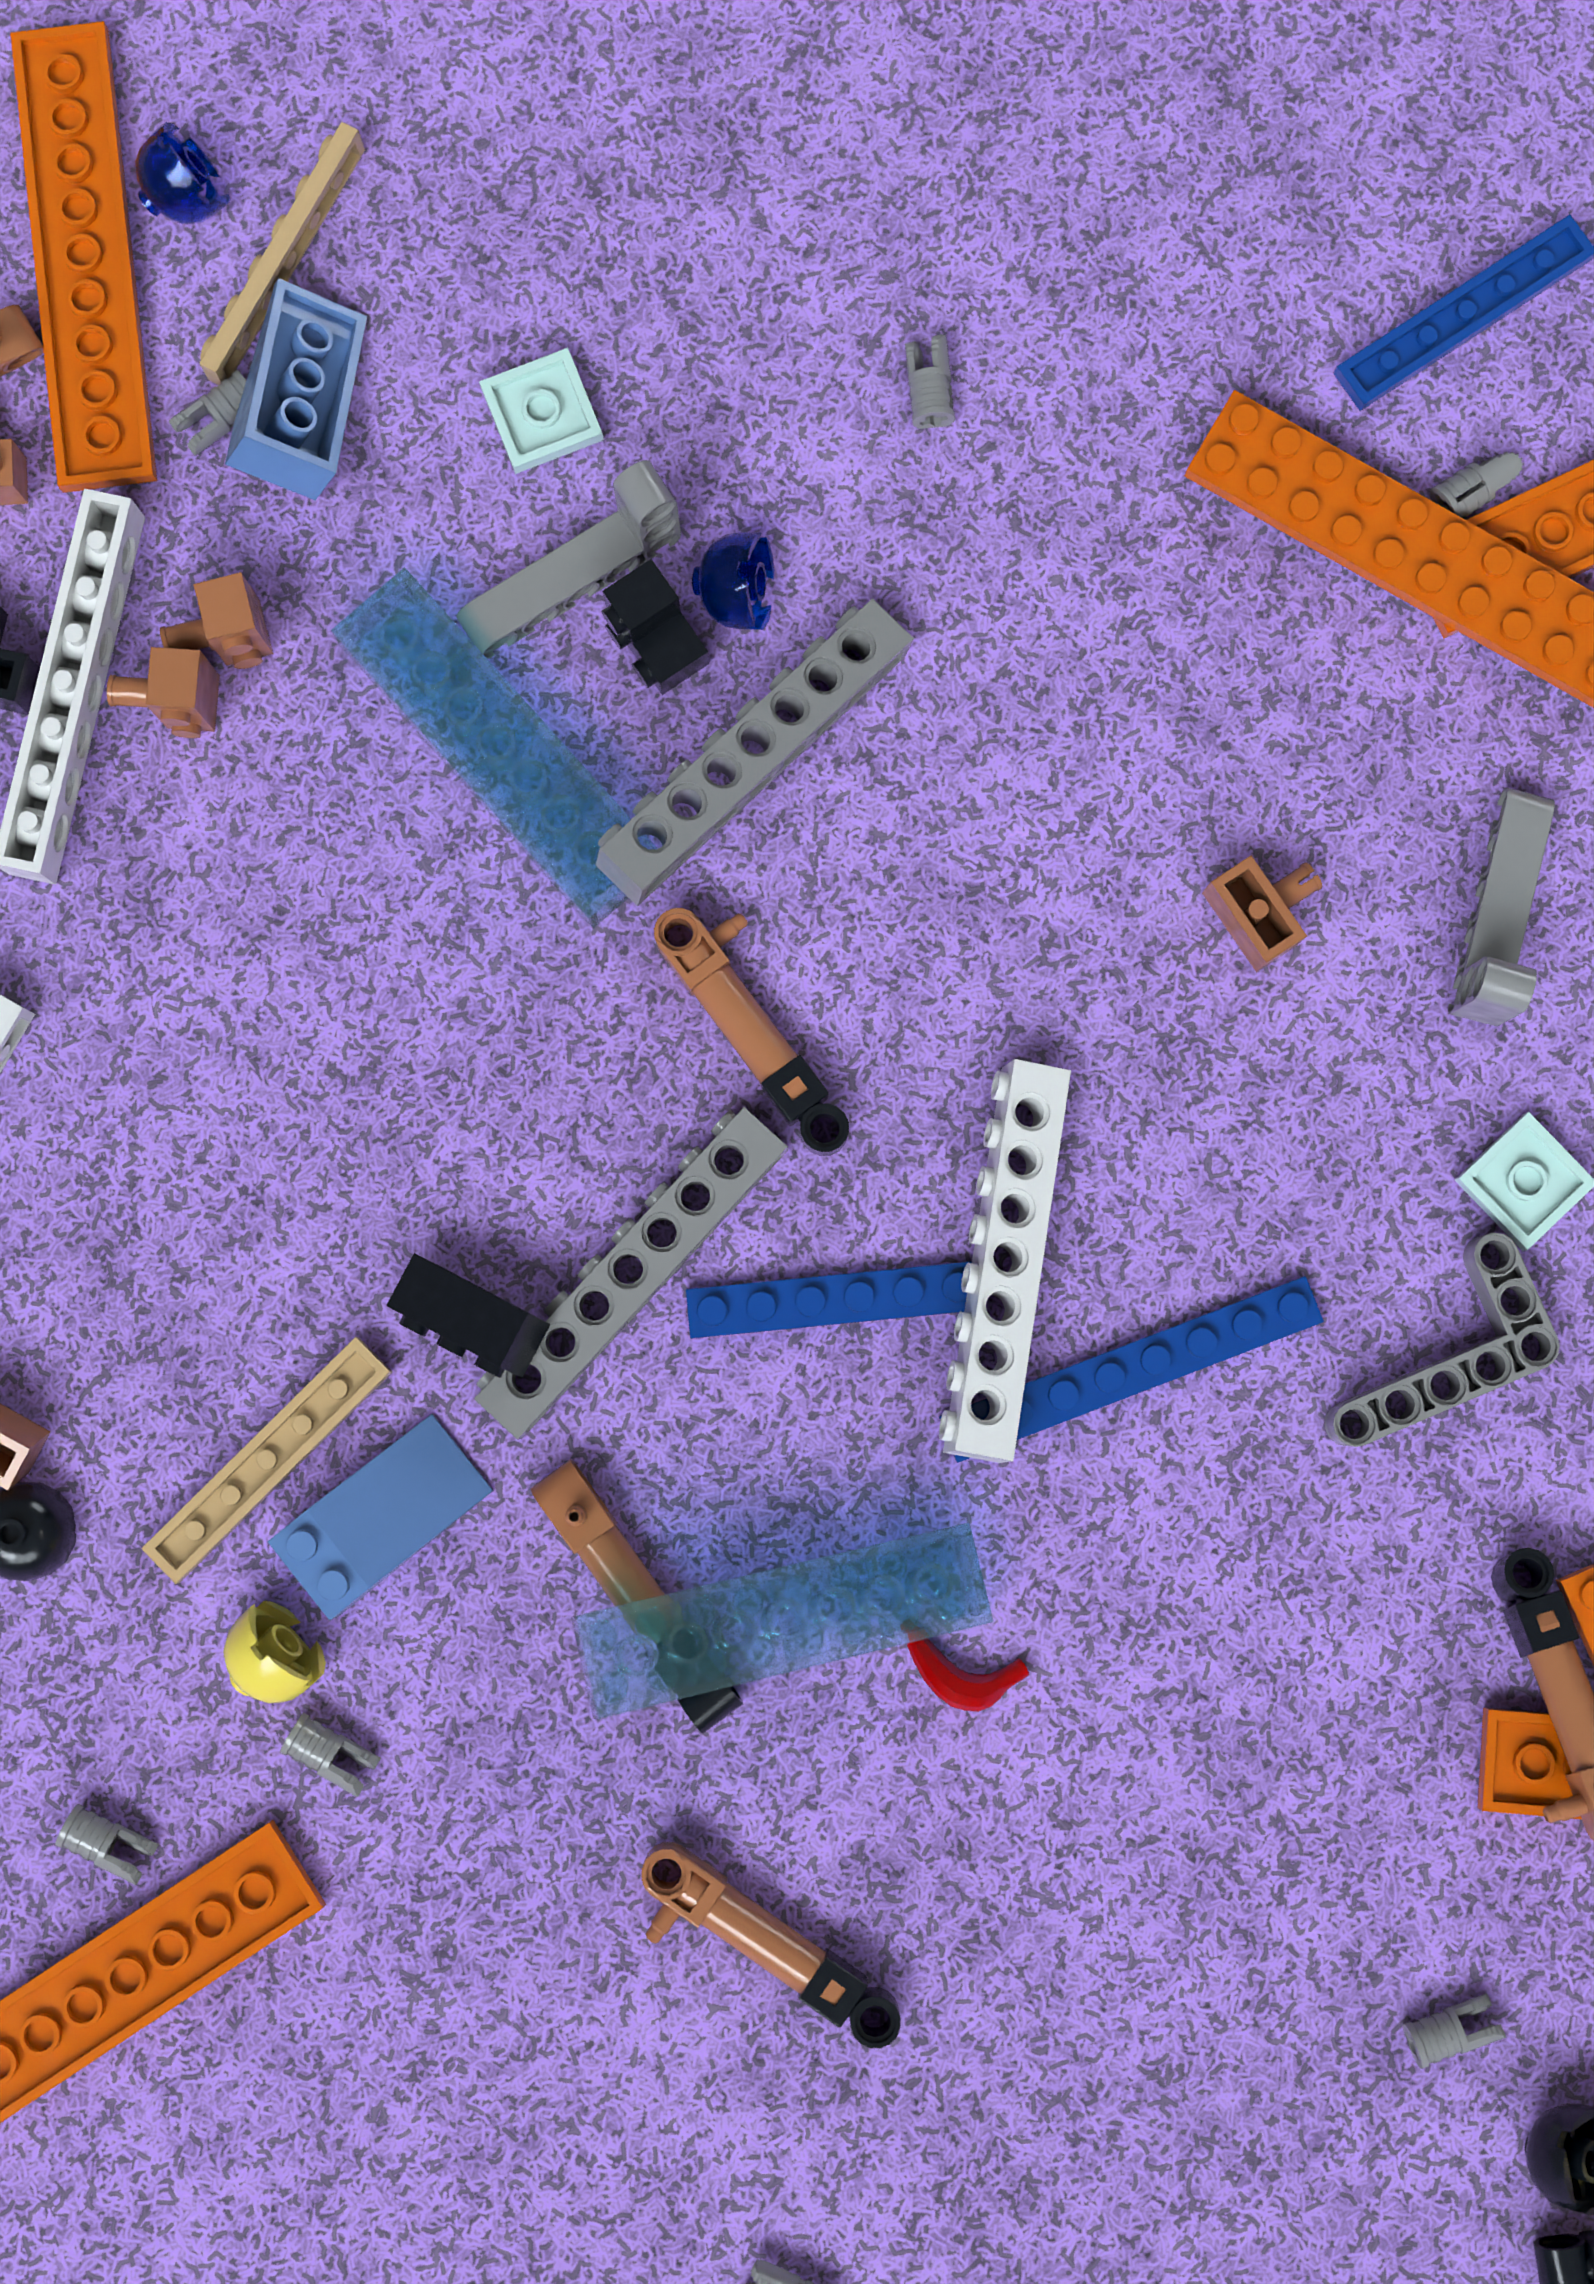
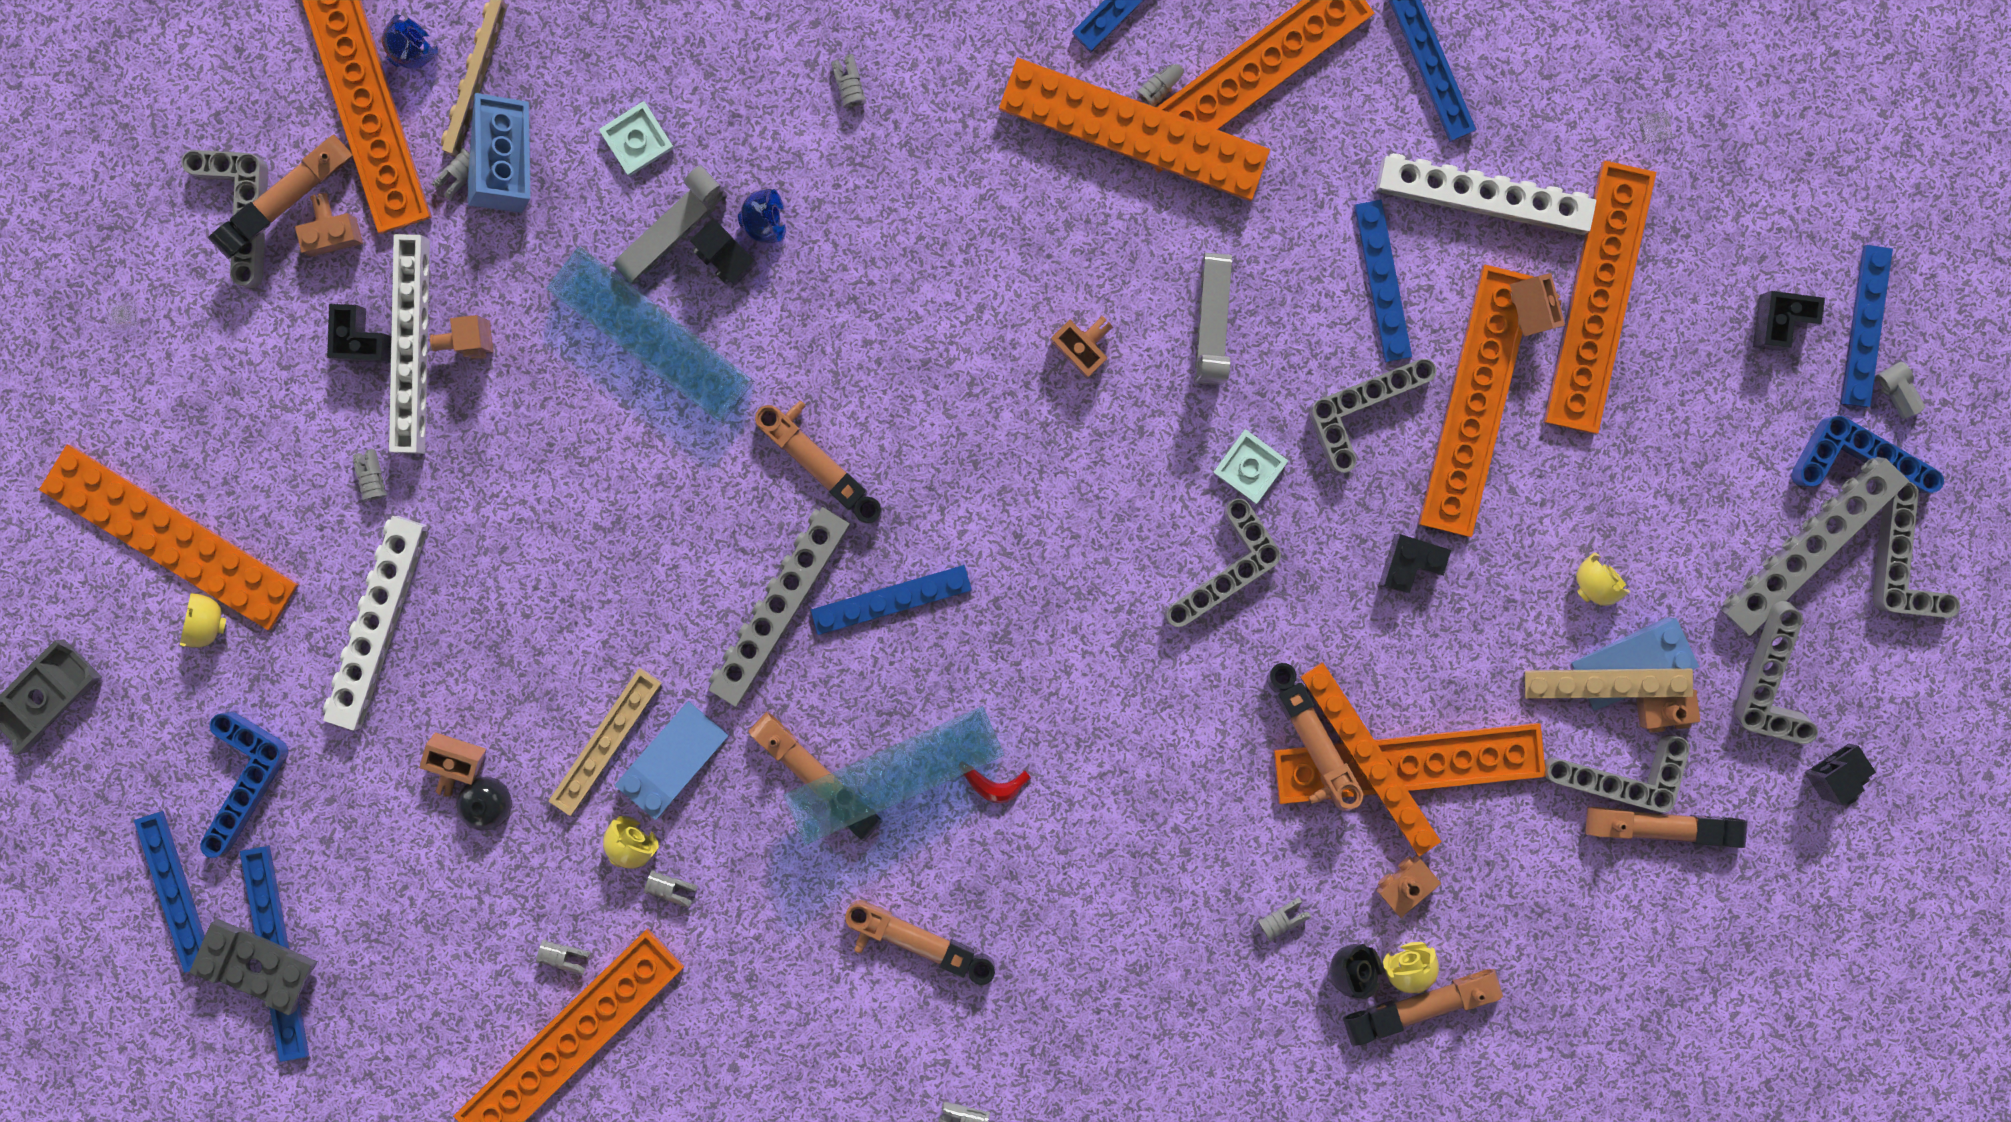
camera: 10 degrees left, 5 degrees up
(228, 624) = (489, 294): nougat brick -> none
(467, 1318) = (696, 647): black brick -> none
(642, 870) = (741, 391): light grey brick -> none
(1045, 1094) = (984, 469): white brick -> none
(1163, 1357) = (1056, 607): blue plate -> none

